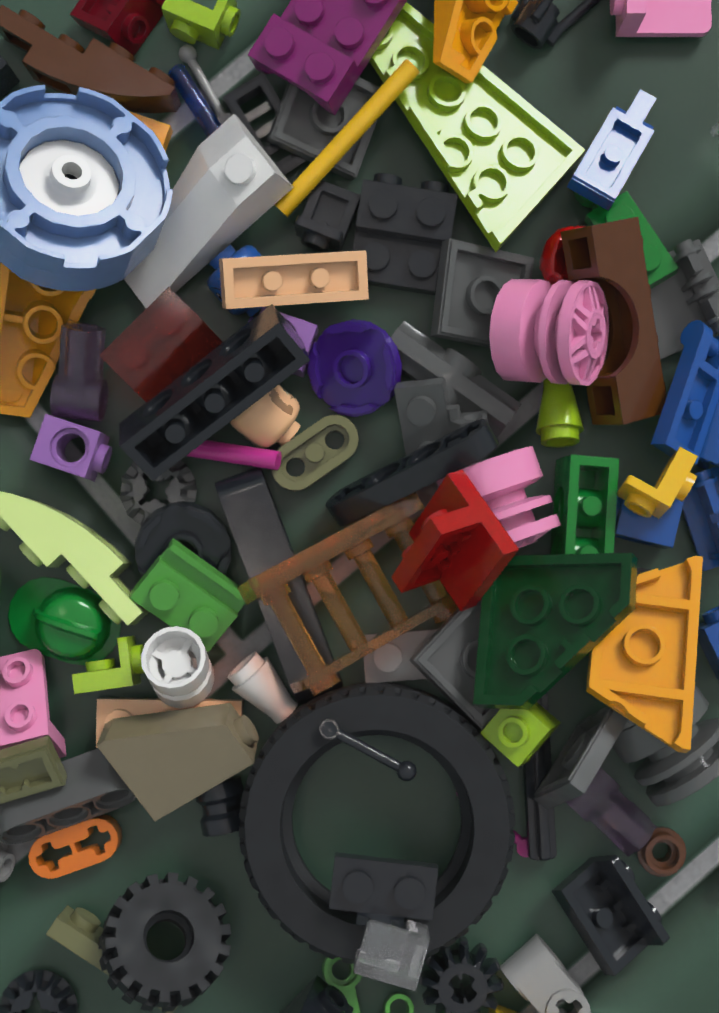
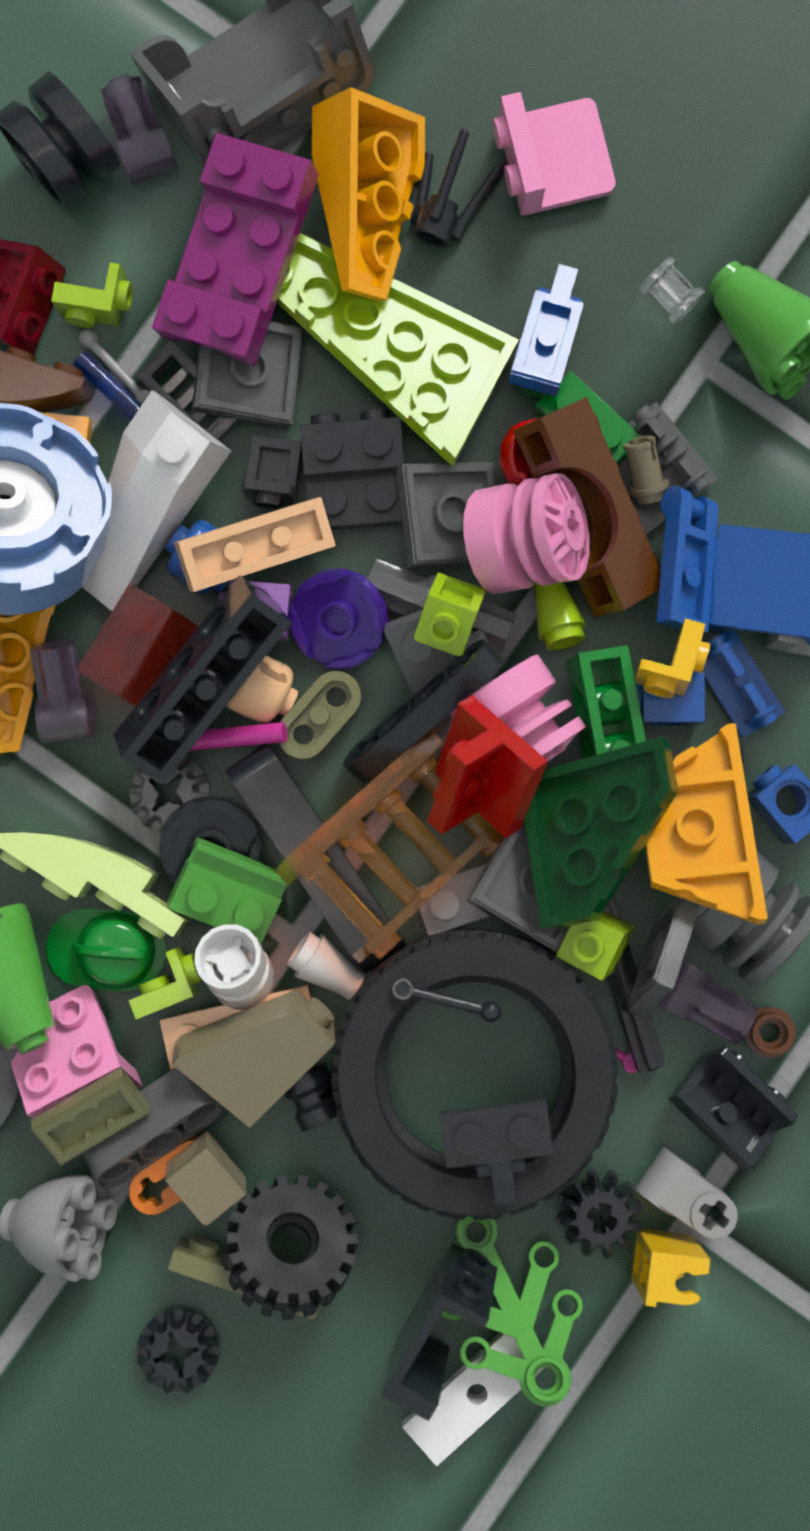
camera: 15 degrees left, 0 degrees up
(54, 437) = (49, 767): medium lavender brick -> none
(102, 858) = (206, 1178): none -> dark tan panel
(348, 136) = (274, 385): yellow bar -> none
(393, 953) = (521, 1195): clear panel -> none
(458, 388) = (449, 614): none -> lime bracket
(674, 299) = (645, 470): none -> dark tan pin

